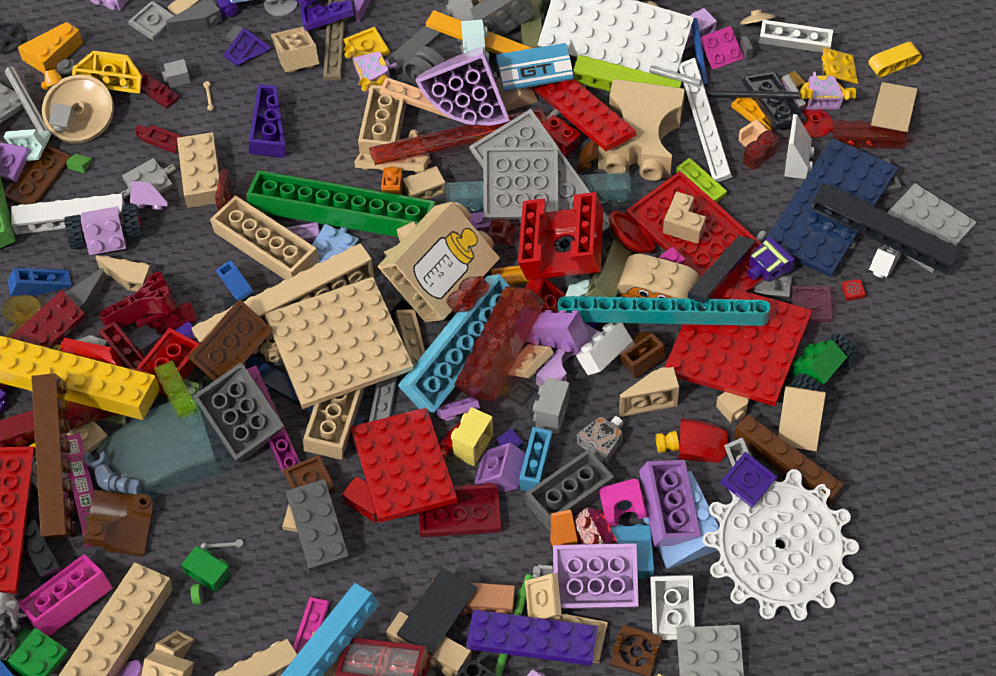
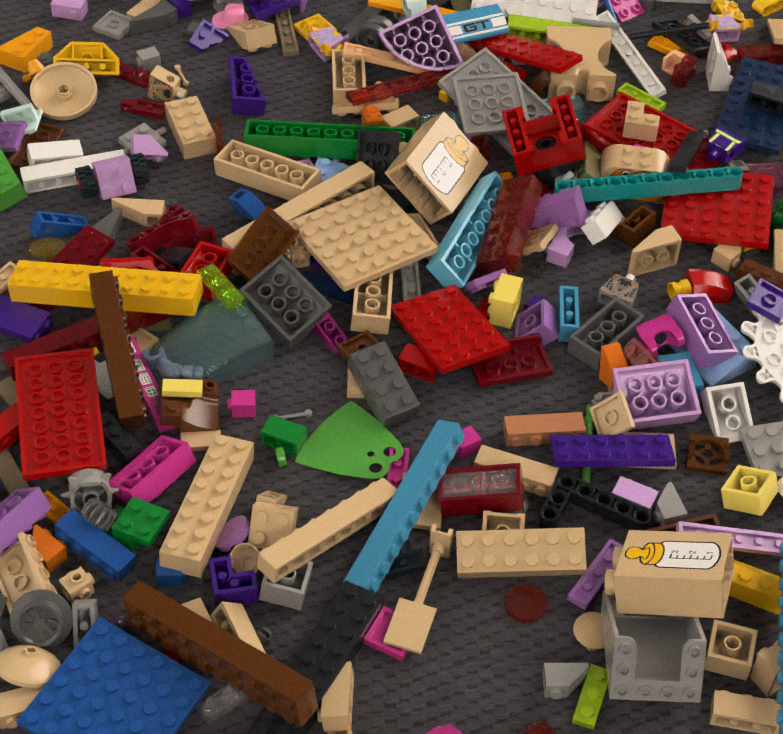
camera: 15 degrees left, 10 degrees down
(50, 189) = (53, 151): none -> white brick
(61, 117) = (51, 95): light grey brick -> none
(78, 163) = (73, 133): bright green slope -> none
(113, 504) = (182, 388): none -> light yellow tile
(121, 562) = (199, 440): none -> tan tile
(173, 526) = (242, 403): none -> dark pink brick
(184, 113) = (165, 85): none -> tan torso
(264, 584) = (343, 444): none -> bright green piece
(279, 20) = (232, 14): none -> bright pink piece
(379, 233) = (378, 152): none -> black plate
(389, 604) = (470, 444): none -> dark pink brick
(437, 611) = (518, 437): black tile -> none
(467, 294) = (471, 187): clear red brick -> none
(551, 405) = (569, 267): light grey brick -> none

